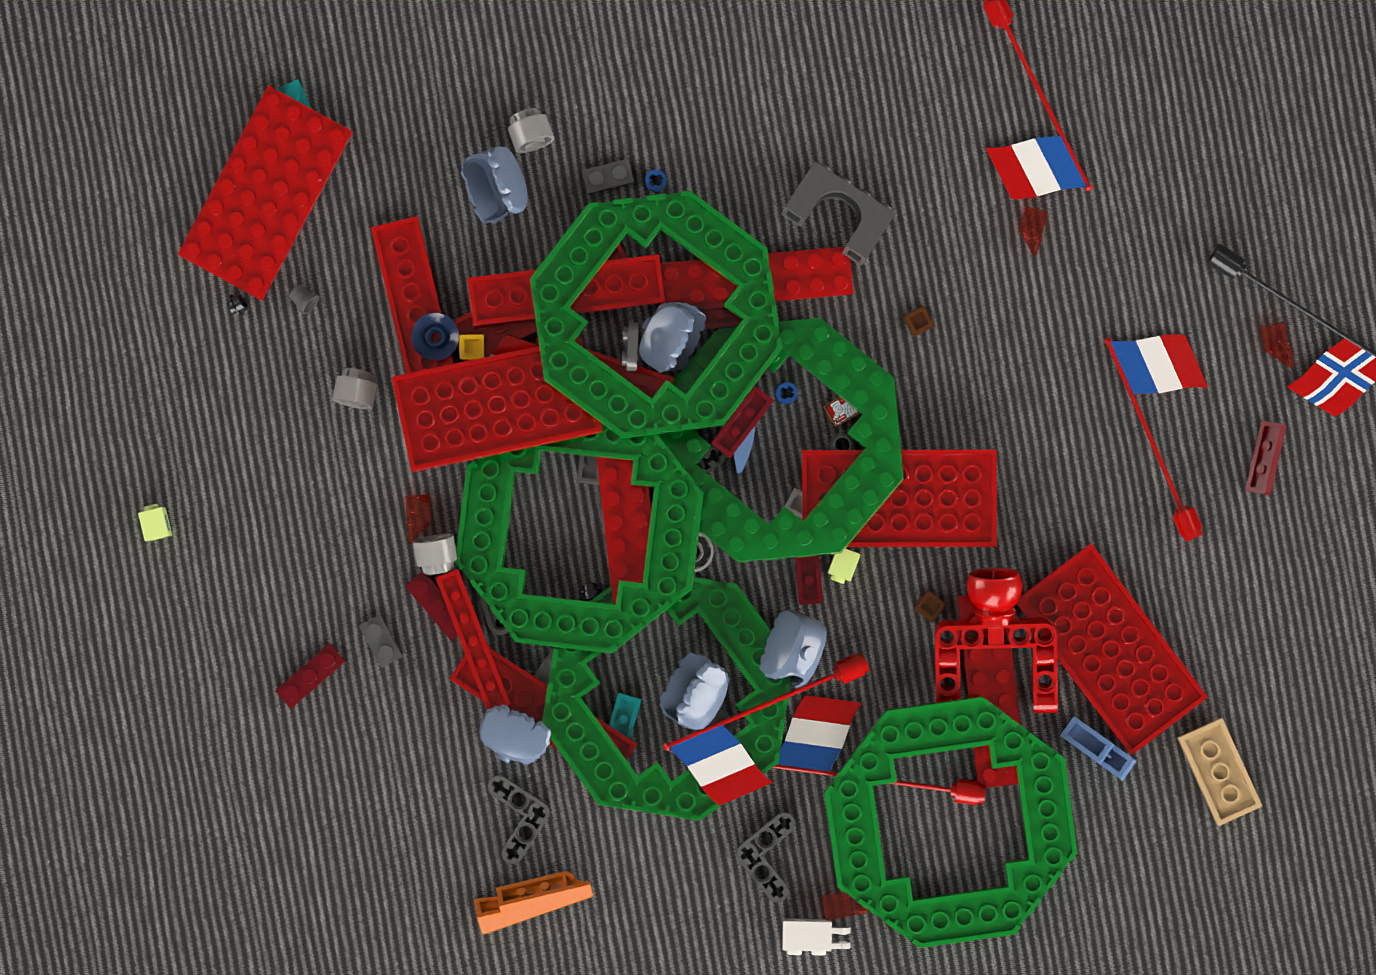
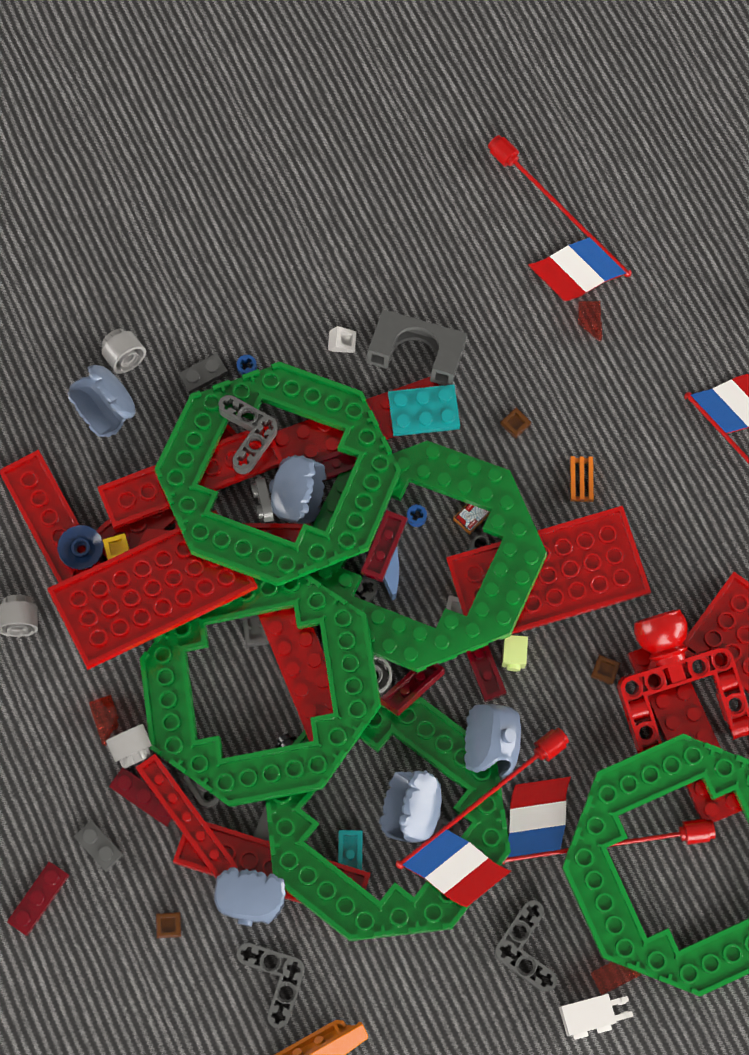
camera: 20 degrees left, 15 degrees down
(429, 736) = (168, 925): none -> reddish brown tile
(645, 261) = (255, 428): none -> dark grey beam
(725, 575) = (411, 688): none -> dark red plate
(763, 179) = (342, 340): none -> white slope
(825, 284) = (424, 410): none -> teal plate
(974, 381) = (582, 498): none -> orange tile

